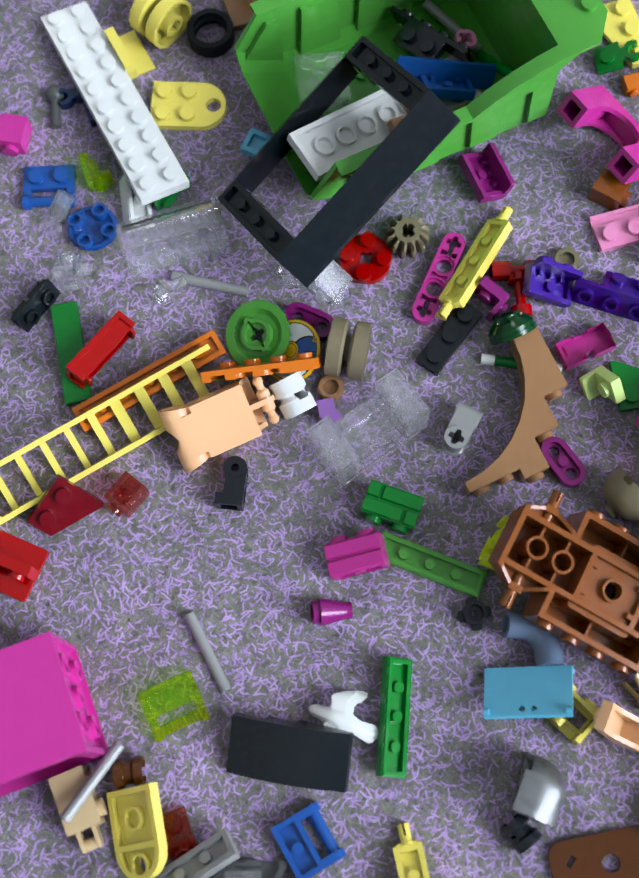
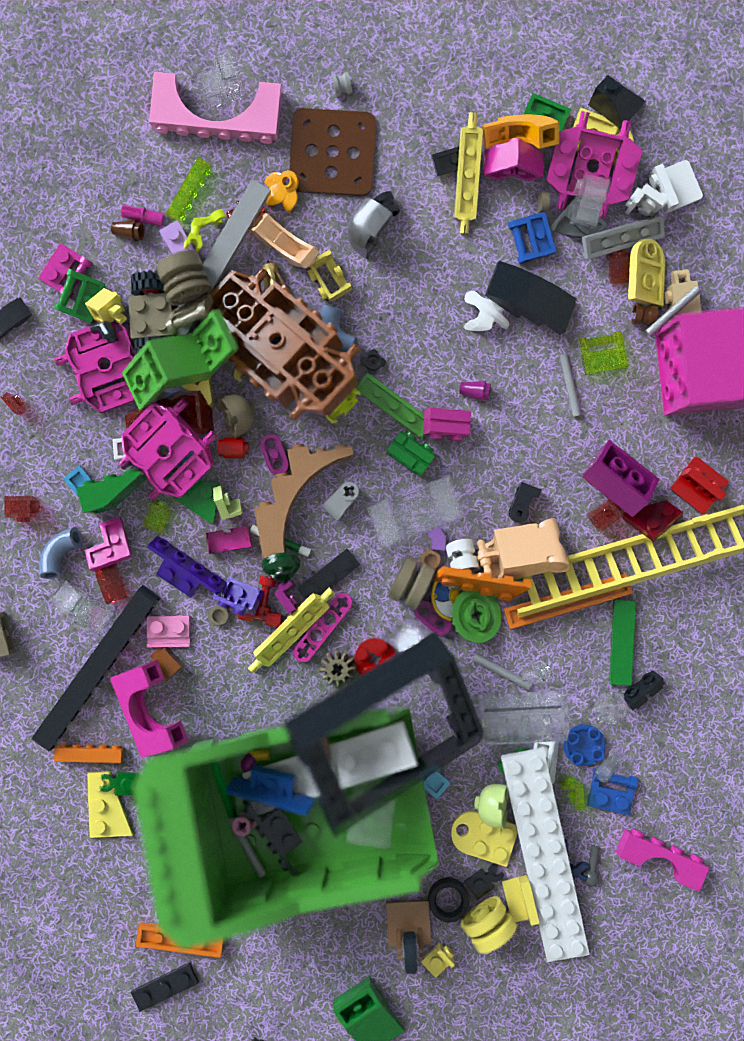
camera: 175 degrees left, 15 degrees up
(100, 350) = (600, 635): red container -> none
(116, 541) = (621, 478): none -> magenta brick
(177, 59) = (481, 883): none -> black plate
(185, 134) = (493, 805): none -> yellowish green cylinder
(394, 717) = (450, 304): green tile -> none
(486, 174) = (259, 705): magenta bracket -> none
(526, 688) = (346, 292): medium azure door -> none
(617, 454) = (233, 448): none -> red brick

